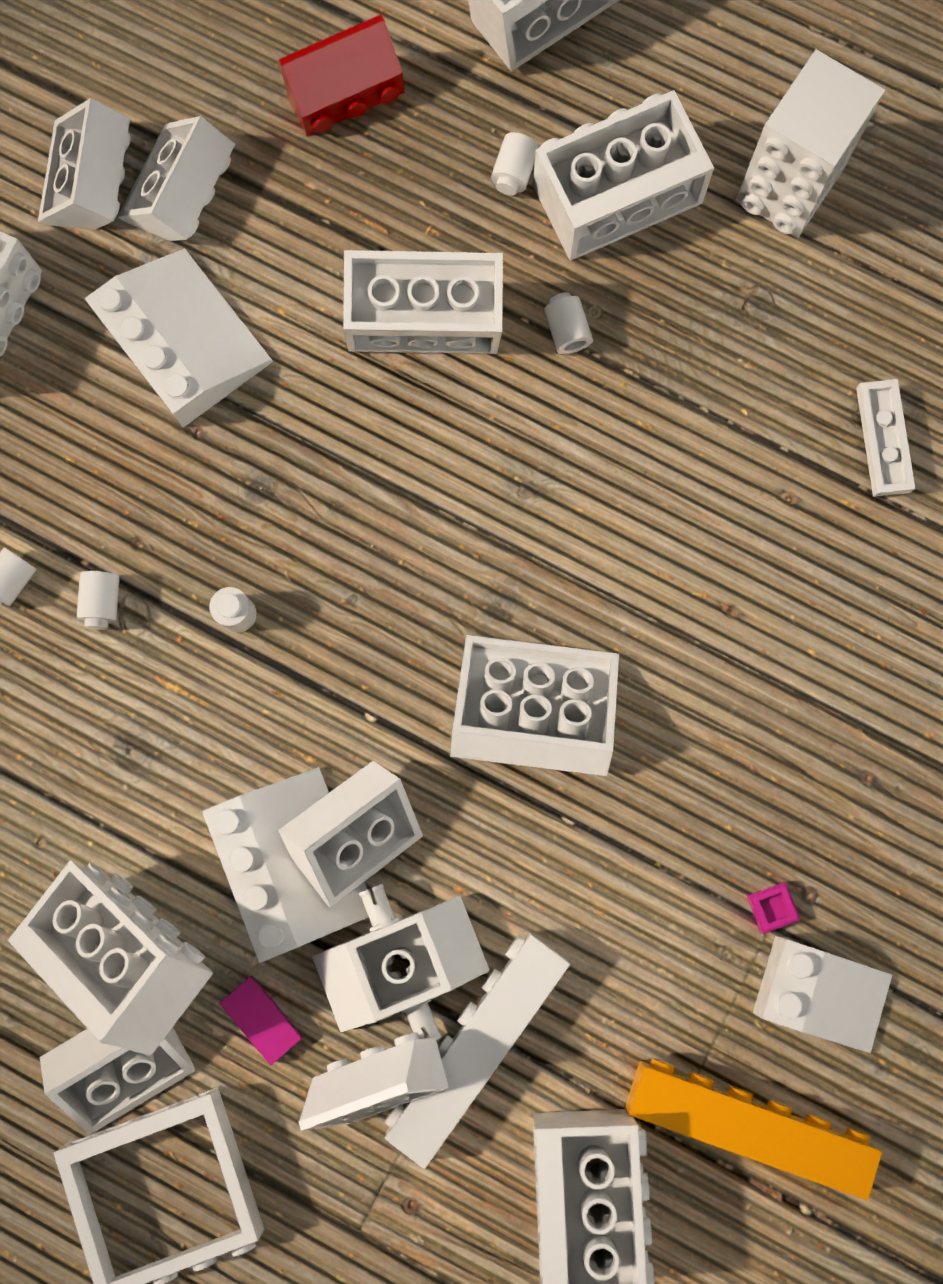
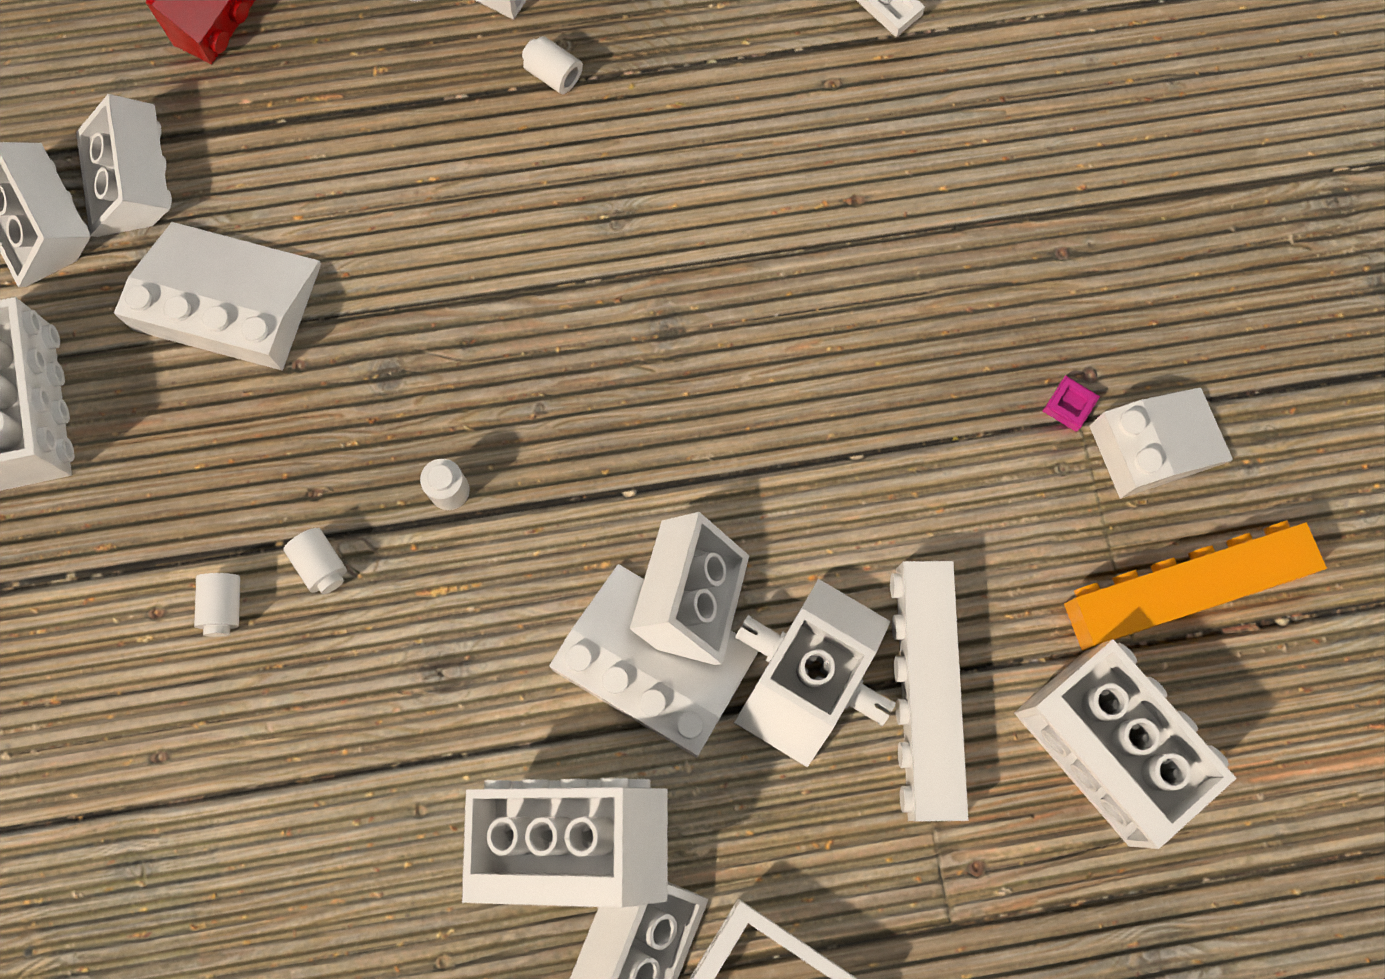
camera: 45 degrees left, 5 degrees down
(261, 1020) = (732, 810): dark pink tile -> none
(374, 1083) = (872, 778): white slope -> none
(423, 301) = (420, 117): white brick -> none
(536, 705) = (761, 381): white slope -> none

